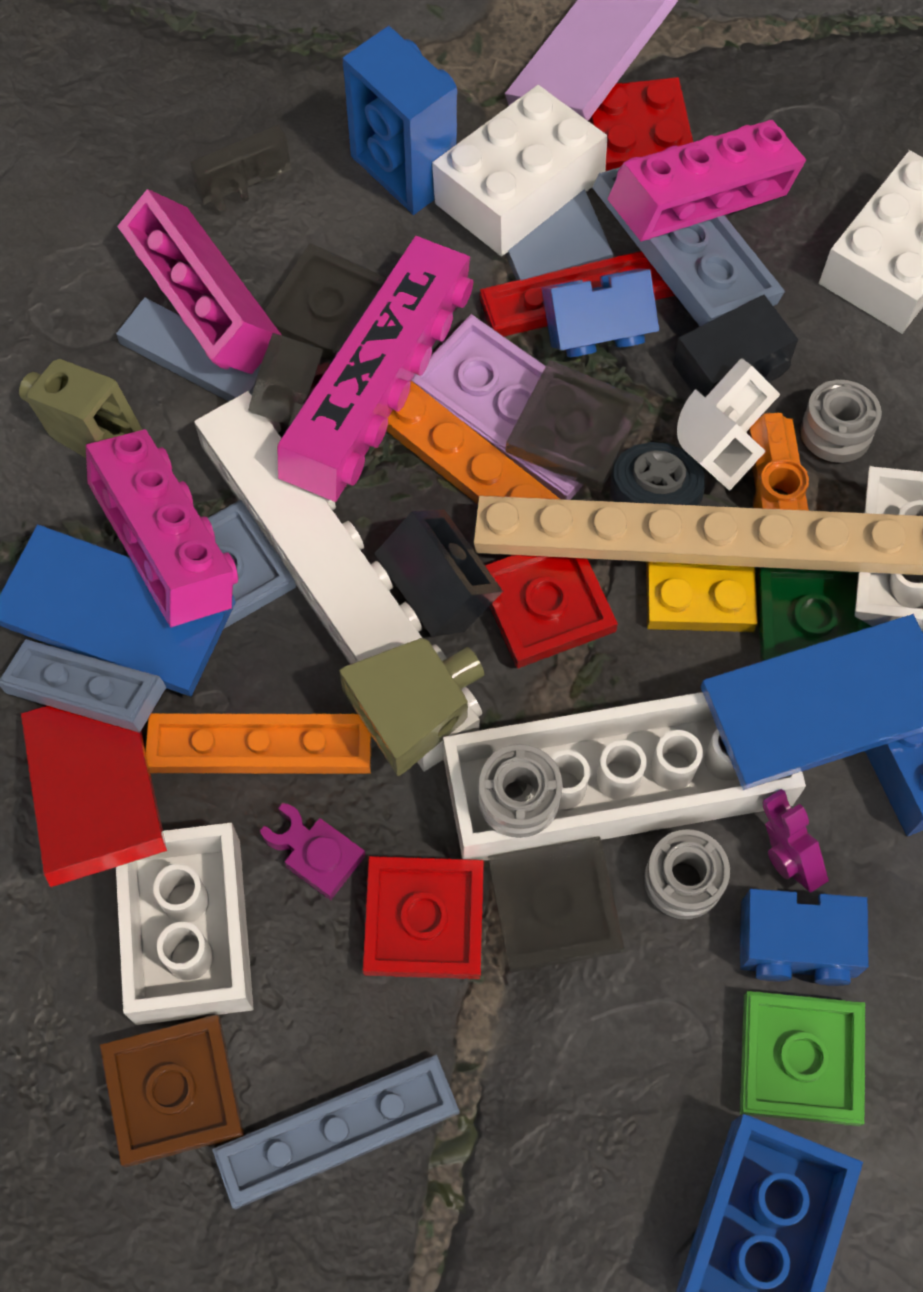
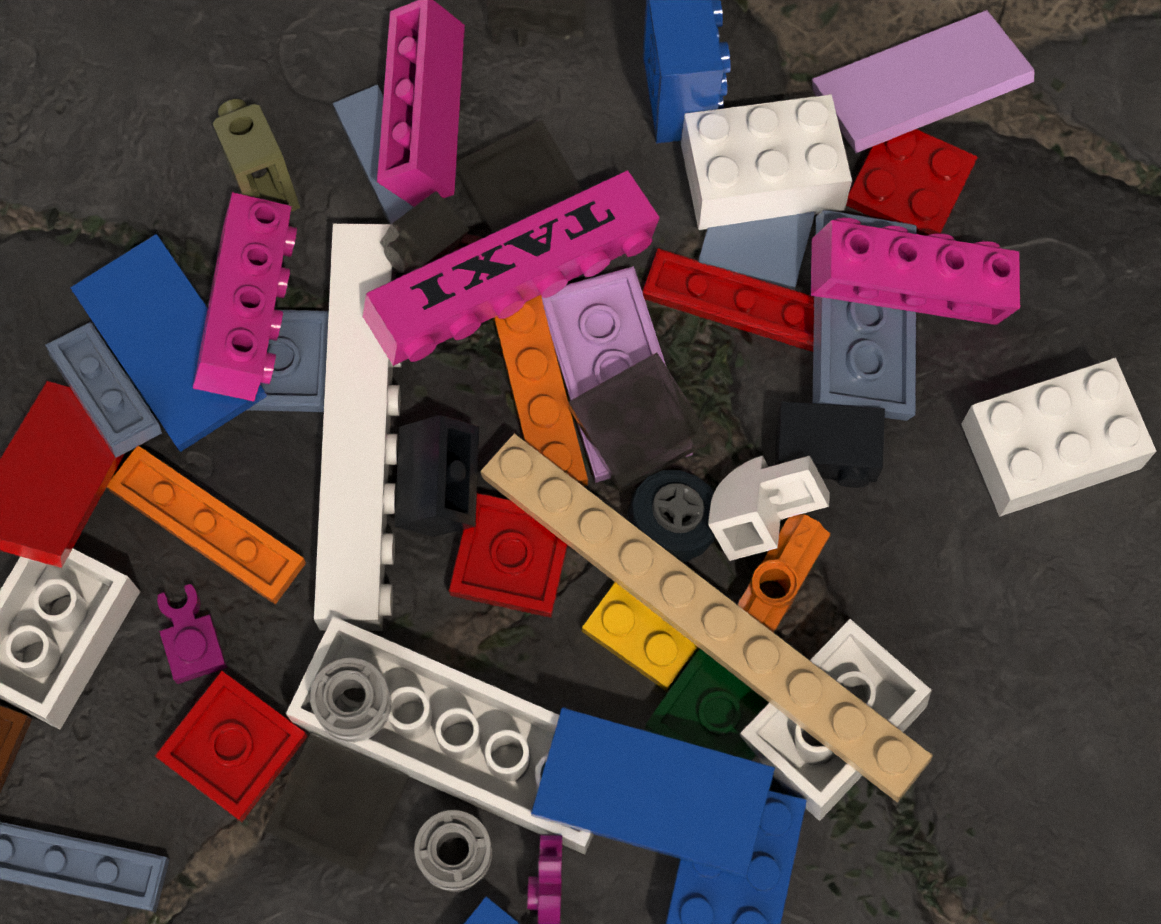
camera: 35 degrees right, 5 degrees up
(410, 698) = (328, 569): olive torso -> none
(616, 311) = (735, 335): brick -> none
(840, 421) = (885, 543): light grey wheel -> none

